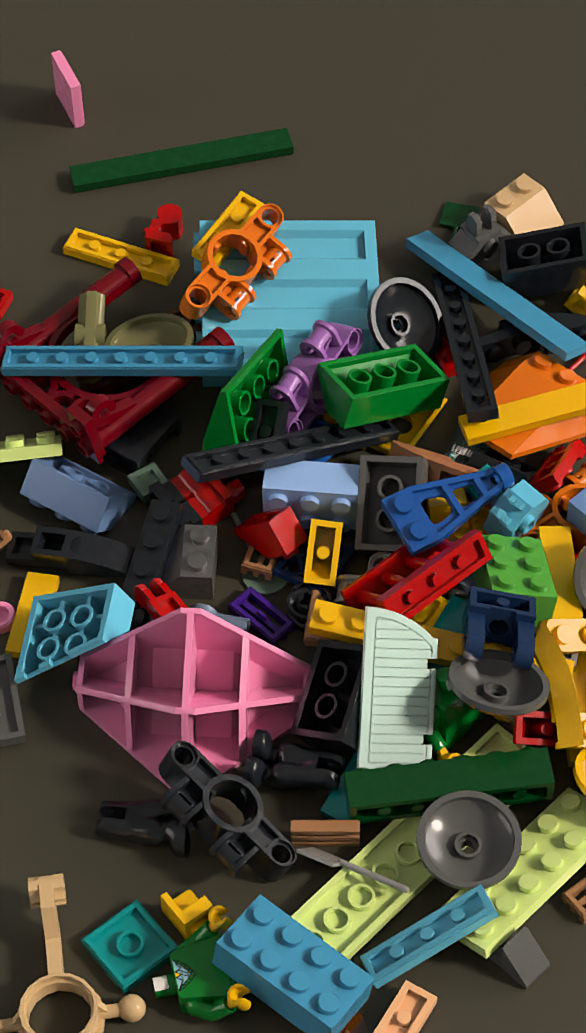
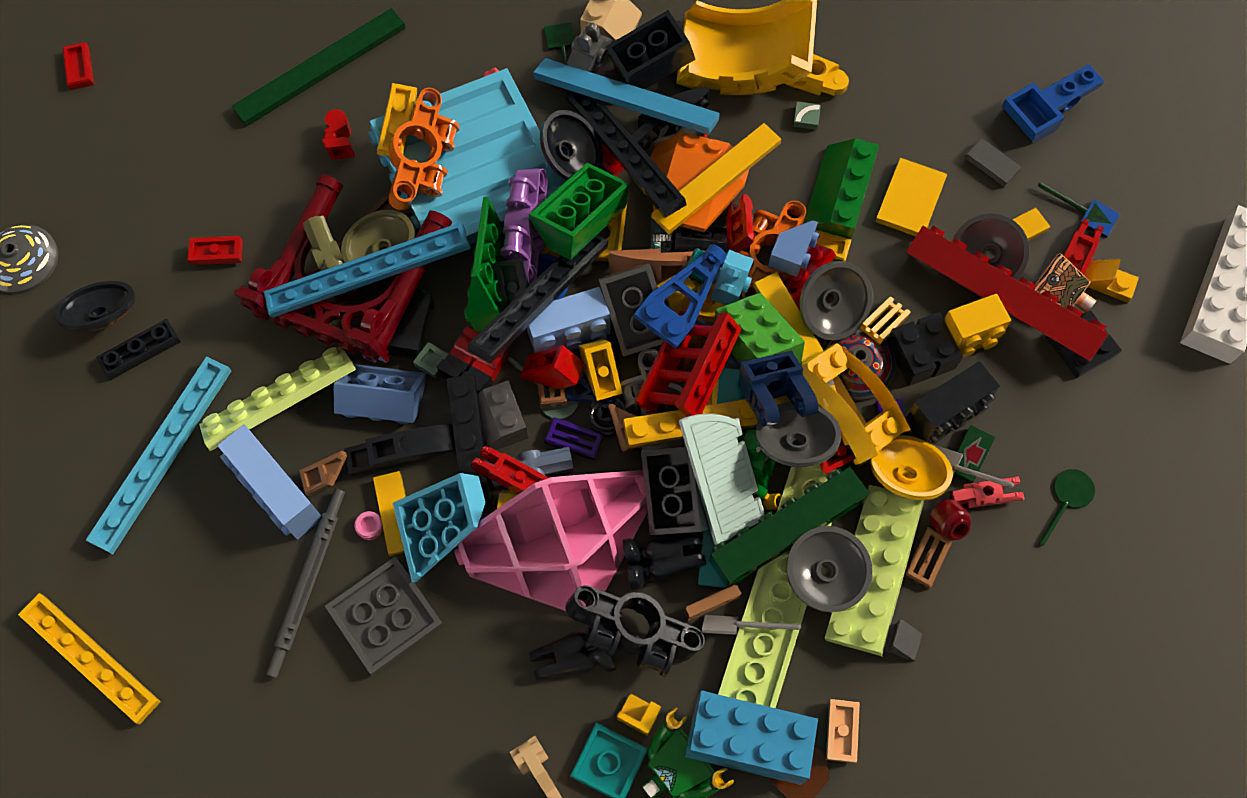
camera: 25 degrees left, 15 degrees up
(68, 88) = (198, 37): bright pink tile -> none
(108, 251) = (309, 169): yellow tile -> none
(429, 936) = (833, 657): medium azure tile -> none

